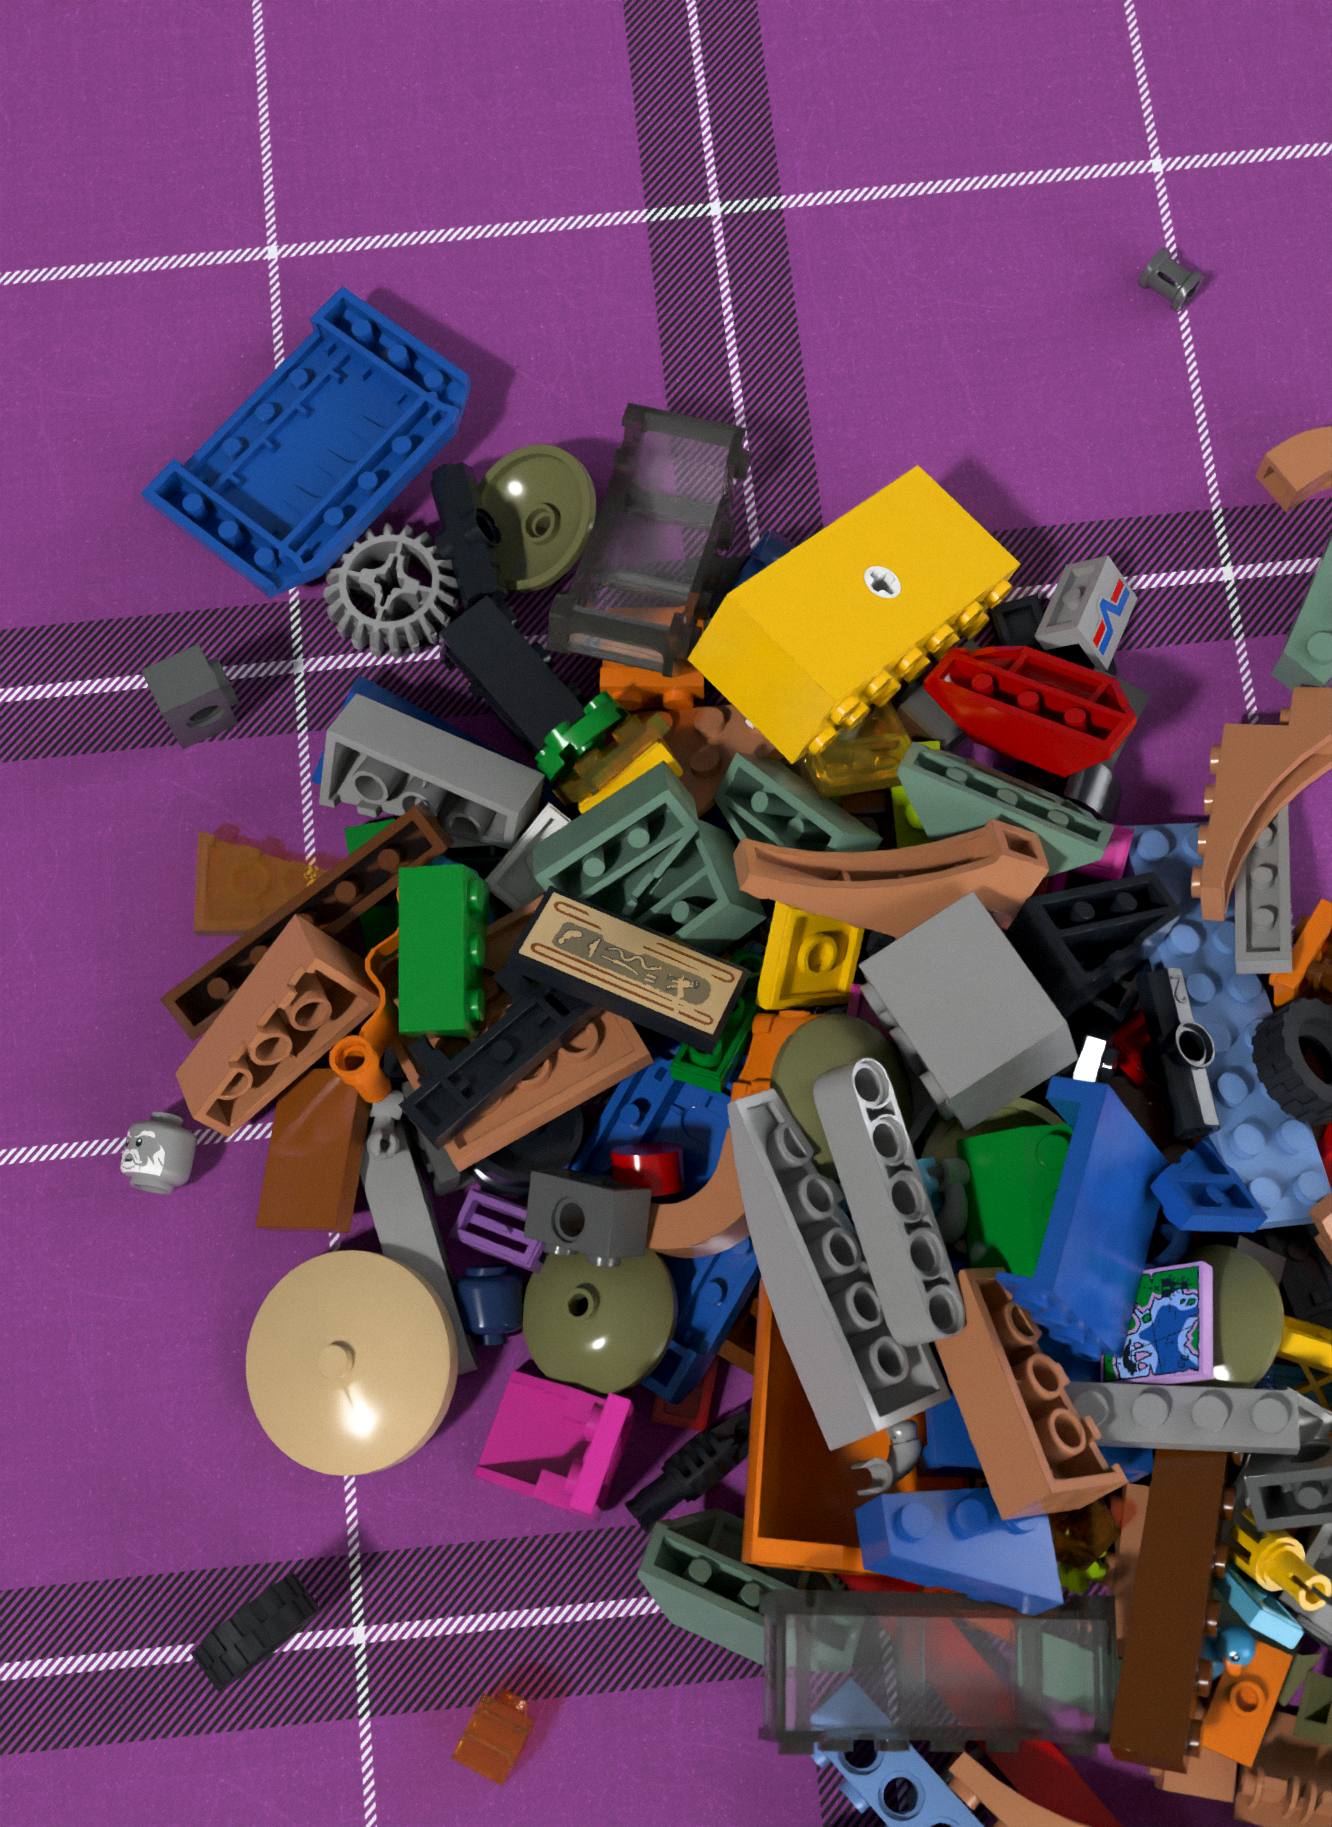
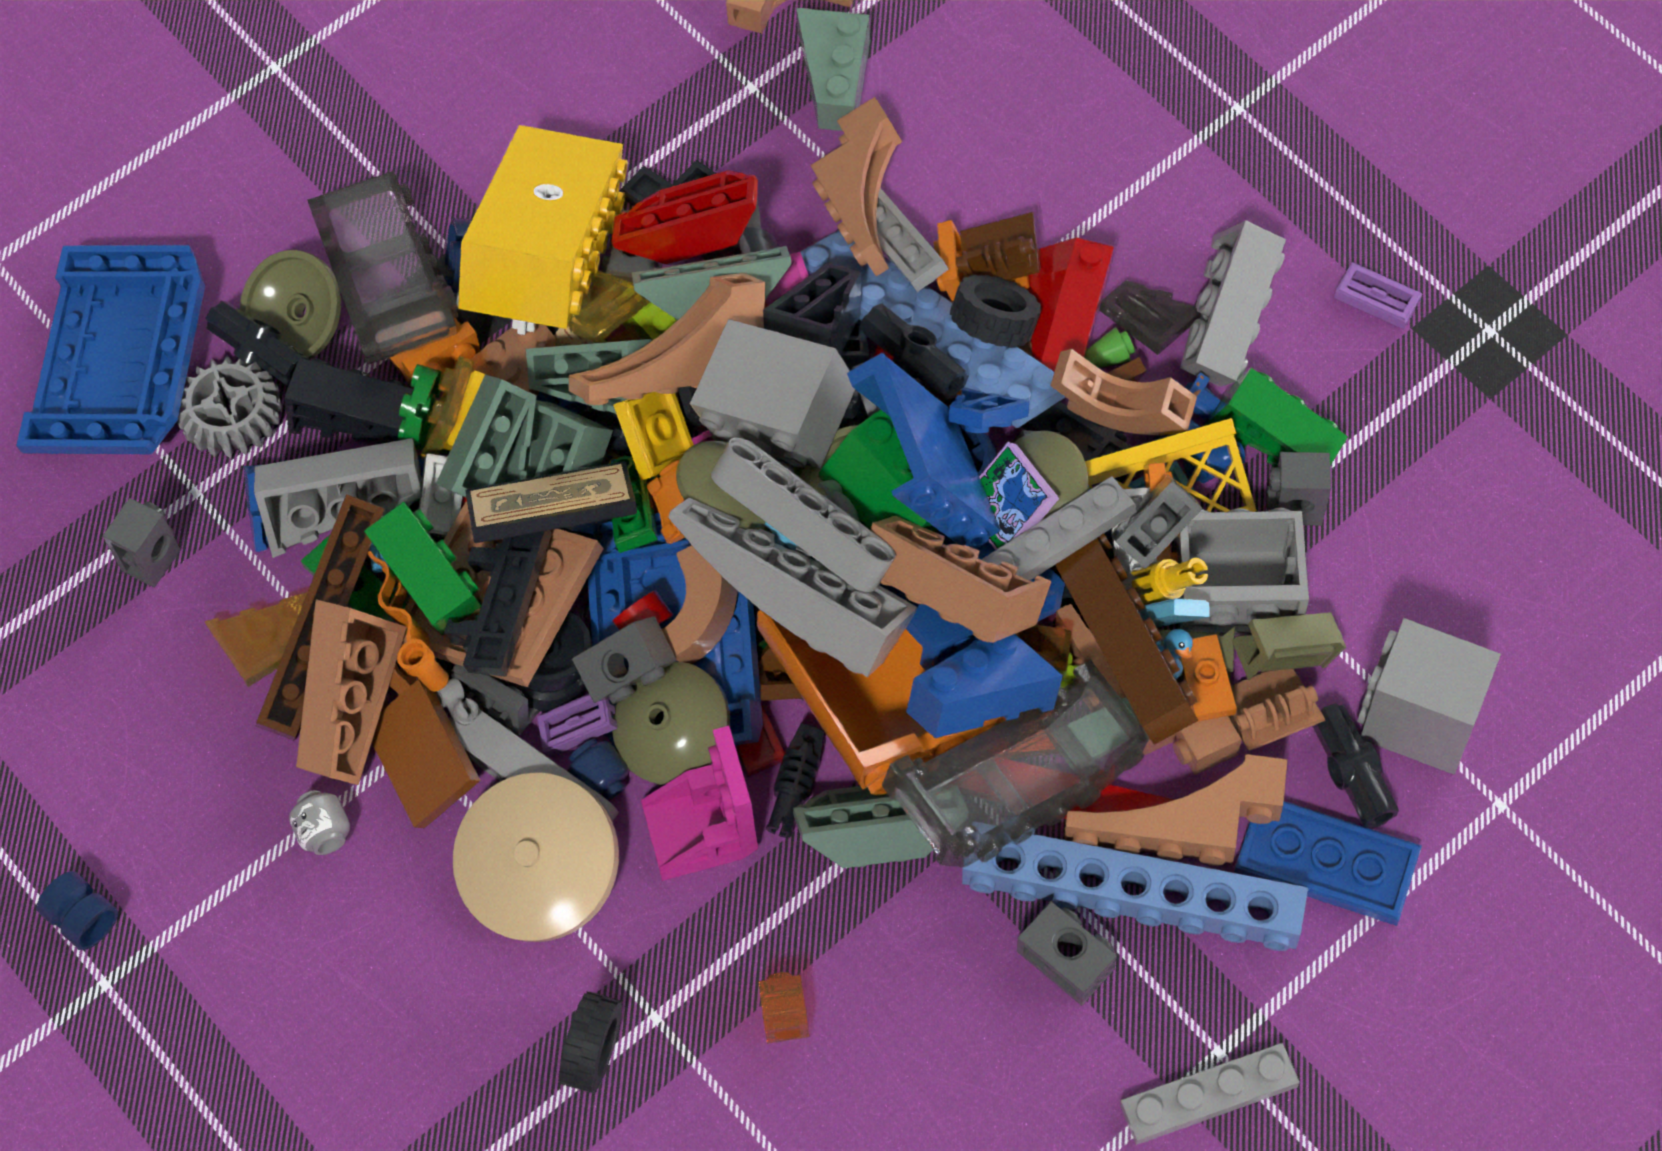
camera: 35 degrees left, 10 degrees down
(902, 1458) = (912, 666): light grey arm -> none
(1088, 609) = (681, 150): light grey panel -> none

